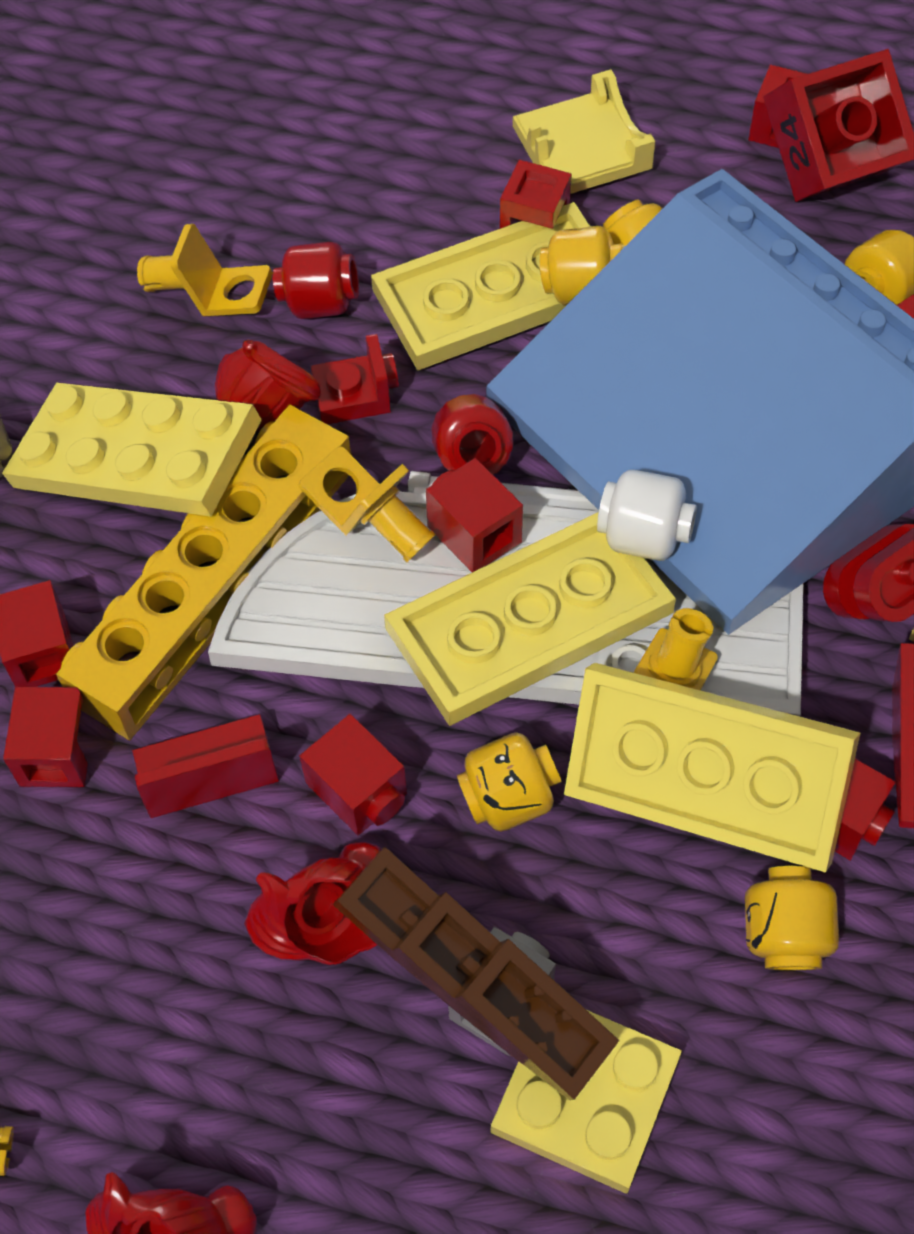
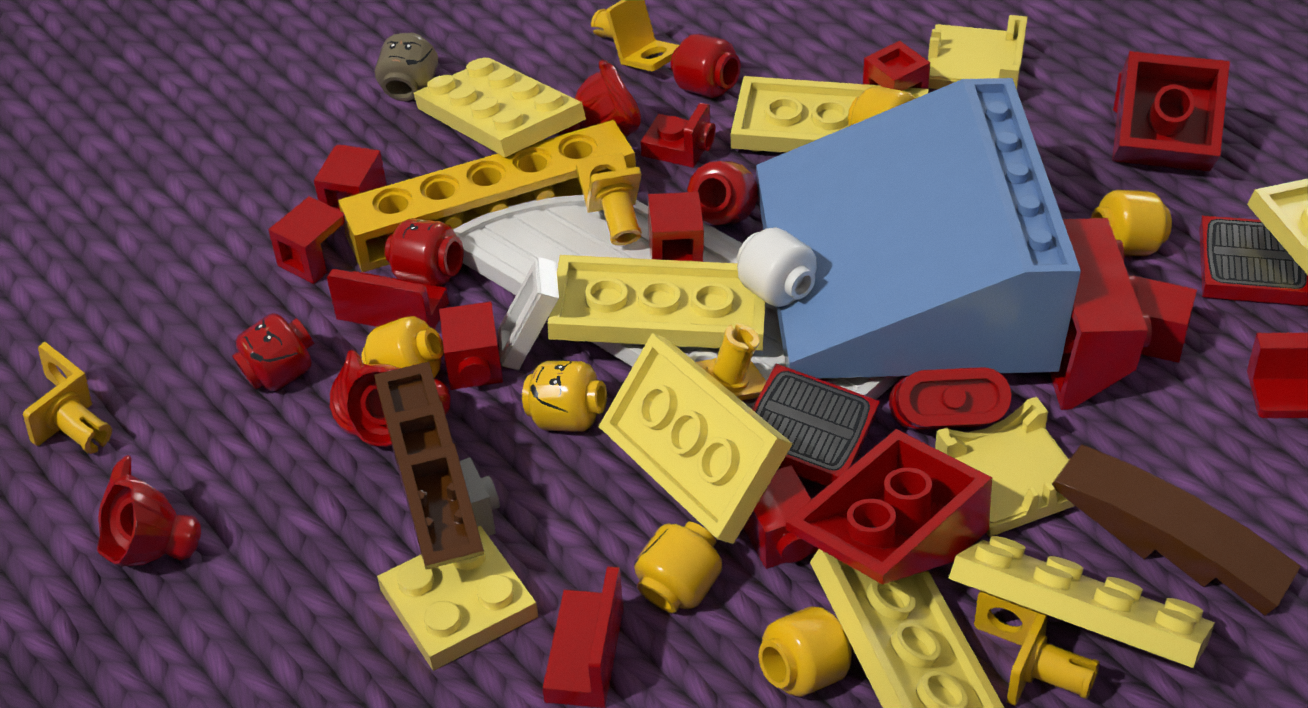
camera: 35 degrees right, 15 degrees down
(134, 913) = (273, 352): none -> red head
(206, 685) = (424, 252): none -> red head
(292, 829) = (404, 344): none -> yellow head
(406, 700) = (528, 313): none -> white tile
(770, 1064) = (585, 645): none -> red panel
(797, 669) = (820, 421): none -> tile

